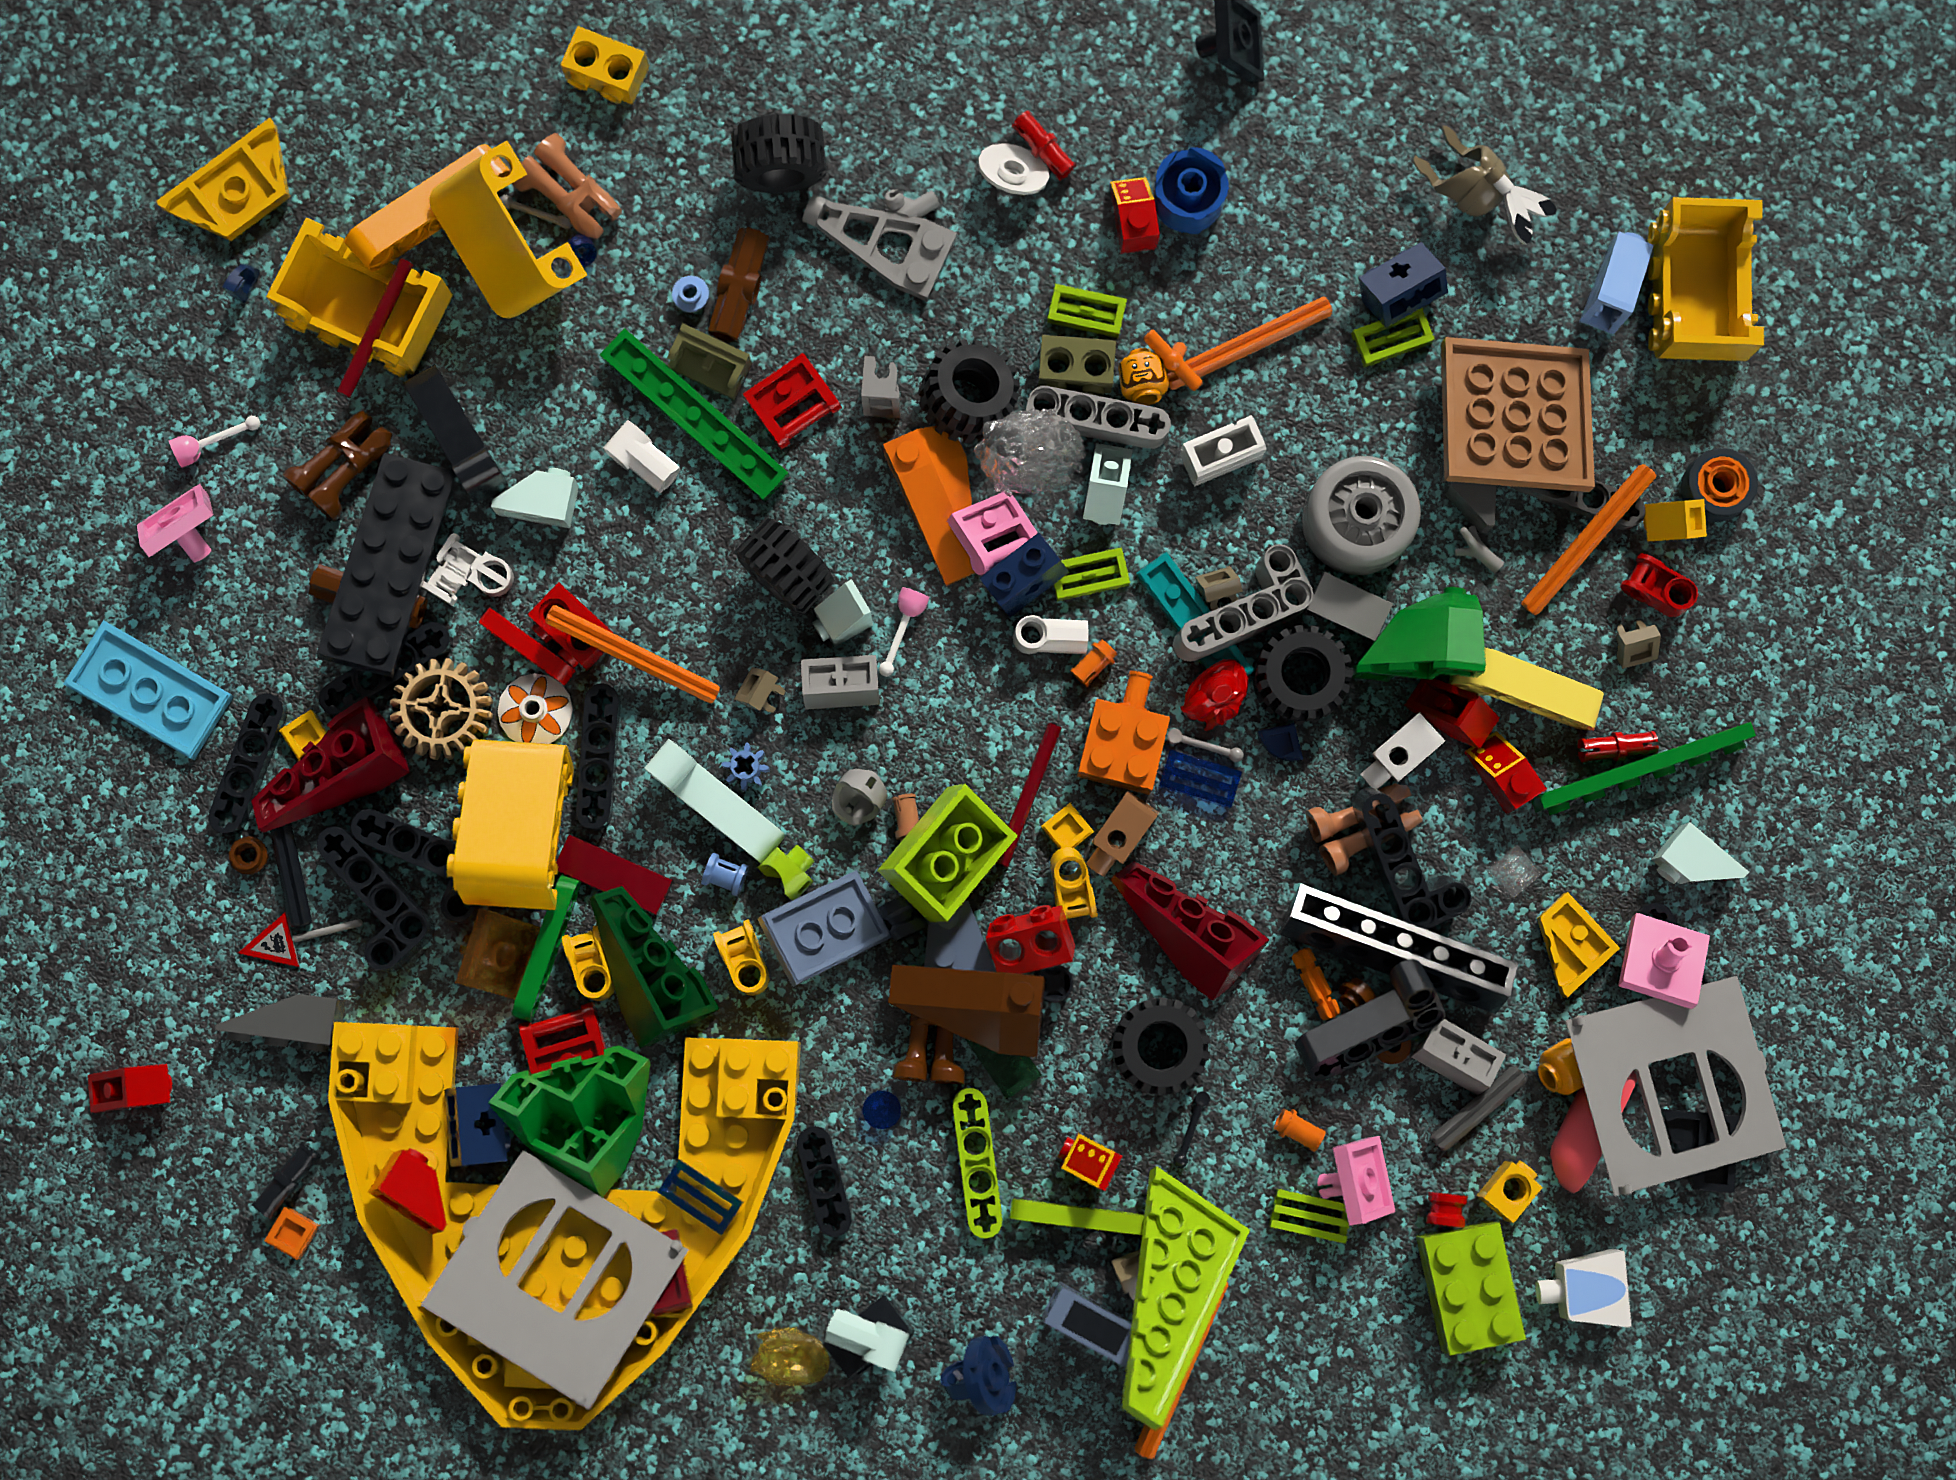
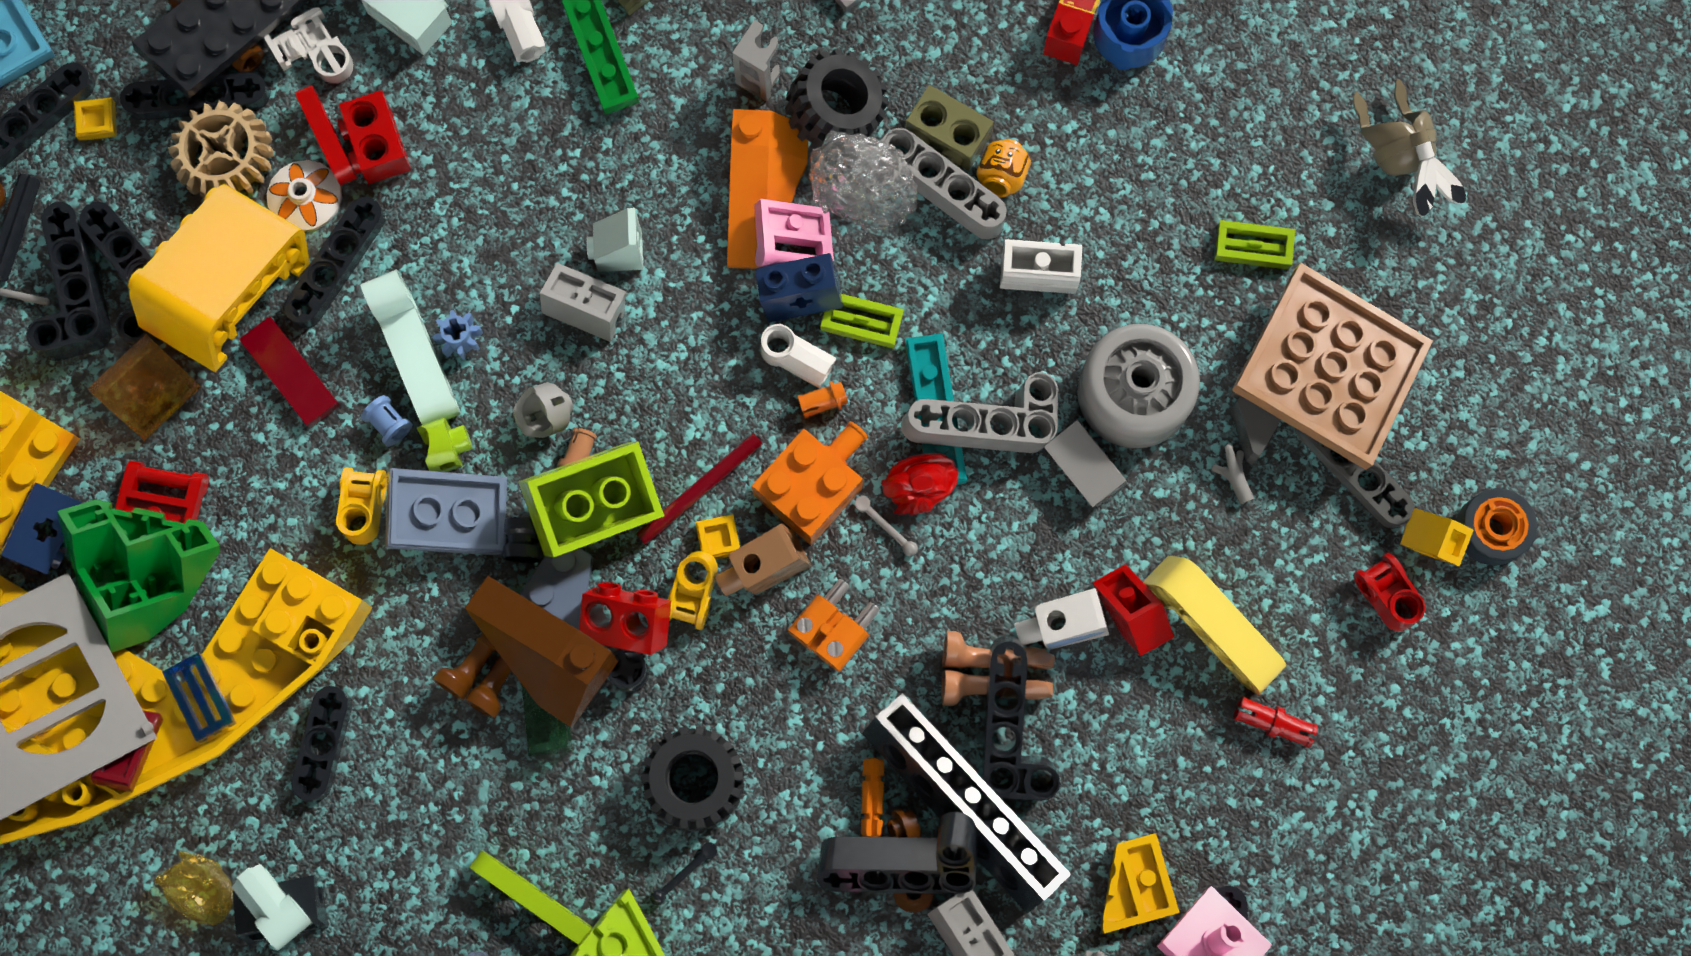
camera: 30 degrees right, 5 degrees down
(348, 763) = (116, 159): dark red wedge -> none
(546, 950) = (191, 406): green beam -> none
(586, 958) = (223, 431): yellow piece -> none
(632, 654) = (410, 183): orange axle -> none
(650, 980) = (267, 478): dark green wedge -> none
(757, 689) = (506, 271): dark tan tile -> none
(784, 391) = (673, 27): red plate -> none
(784, 565) = (586, 171): black tyre -> none
(882, 1109) = (410, 706): clear blue tile -> none
(910, 604) = (685, 266): hinge -> none
(980, 1162) = (463, 798): lime beam -> none
(1084, 324) = (974, 97): lime tile -> none
(1088, 1160) = (569, 851): red slope -> none
(1107, 484) = (919, 247): light aqua slope -> none
(1173, 359) = (1038, 164): orange piece -> none
(1194, 792) = (888, 577): clear blue tile -> none
(1200, 942) = (782, 698): dark red wedge -> none
(1207, 862) = (829, 631): none -> orange piece
(1219, 585) = (974, 386): dark tan tile -> none
(1255, 339) = (1117, 186): orange axle -> none
(1281, 742) = (958, 558): dark blue tile -> none
(1299, 1129) = (783, 926): orange pin -> none
(1316, 647) = (1017, 474): black tyre -> none
(1403, 284) = (1287, 200): dark blue brick -> none
(1429, 639) = (1139, 528): green brick -> none
(1505, 772) = (1154, 692): red slope -> none
(1514, 872) = (1115, 789): clear tile -> none
(1588, 539) = (1344, 514): orange axle -> none
(1617, 282) = (1490, 294): light blue slope -> none
(1637, 645) = (1342, 636): dark tan tile -> none
(1658, 764) = (1305, 757): green plate -> none
(1695, 858) = (1297, 867): light aqua slope -> none
(1704, 280) = (1576, 330): yellow windscreen -> none

